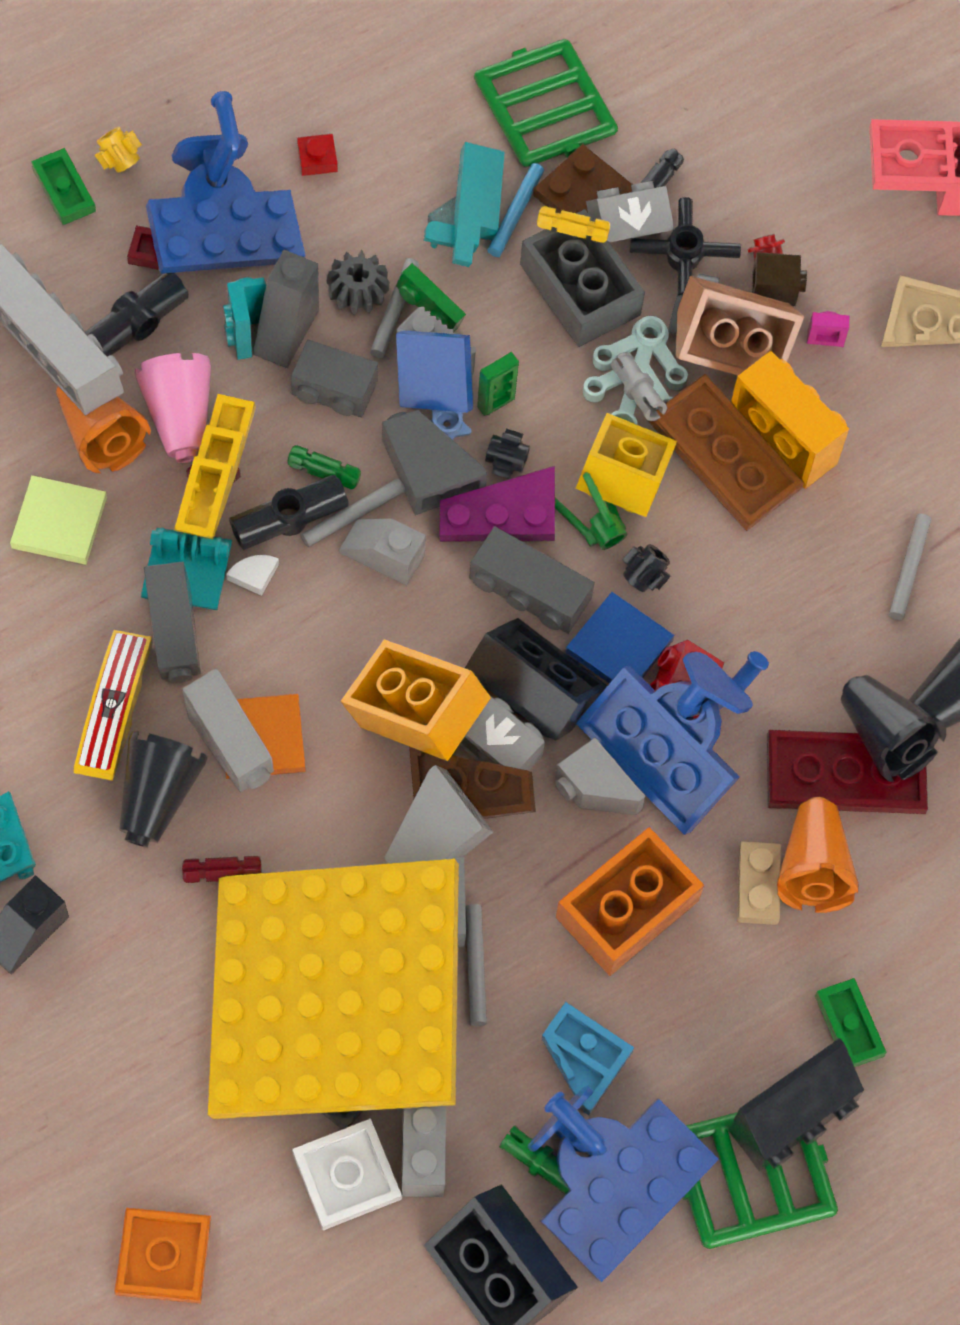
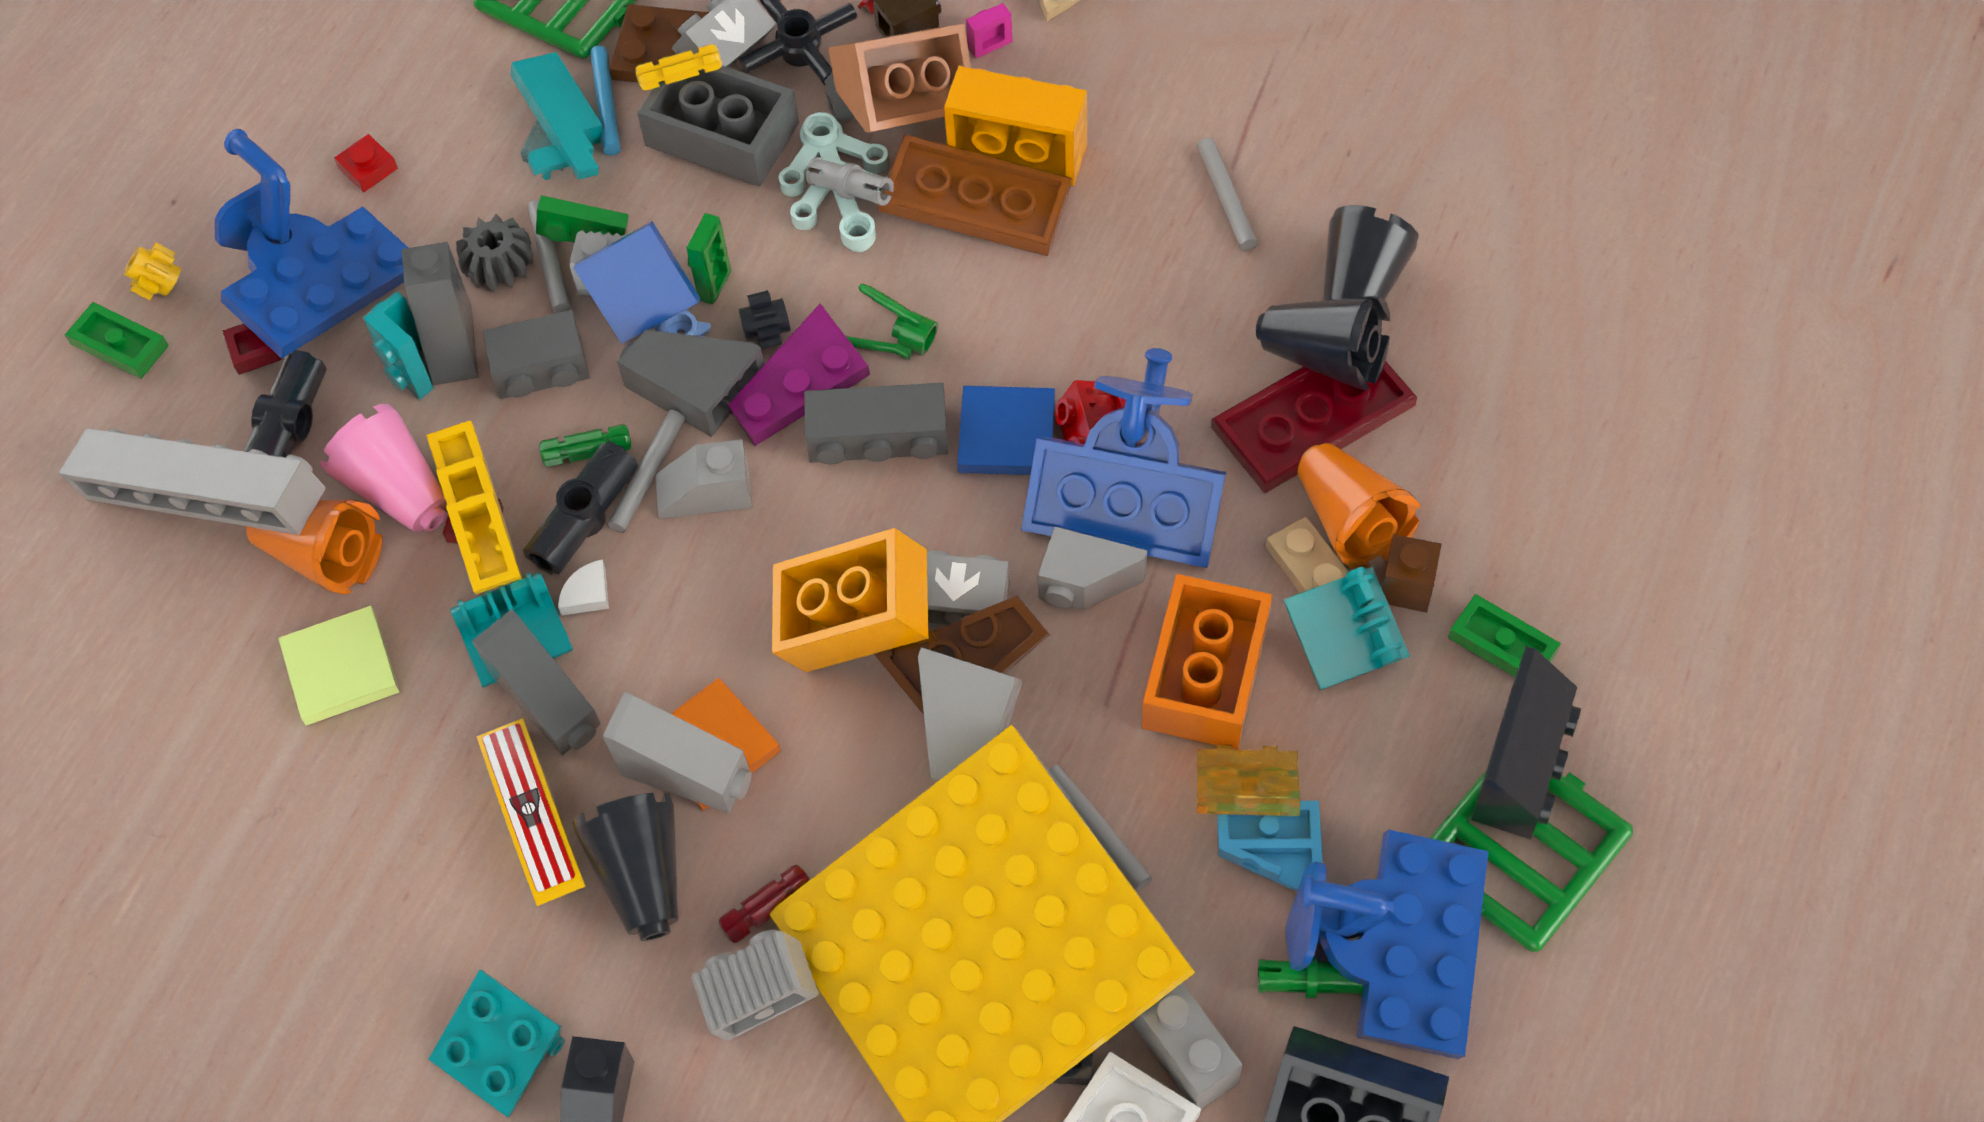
camera: 25 degrees left, 5 degrees down
(174, 918) = (754, 984): none -> light grey brick
(534, 678) = (953, 510): black slope -> none
(590, 1009) = (1248, 781): none -> clear yellow plate
(627, 464) = (893, 256): yellow slope -> none
(646, 568) = (981, 342): black gear -> none
(746, 941) = (1346, 628): none -> teal hinge
(819, 932) = (1411, 572): none -> reddish brown brick

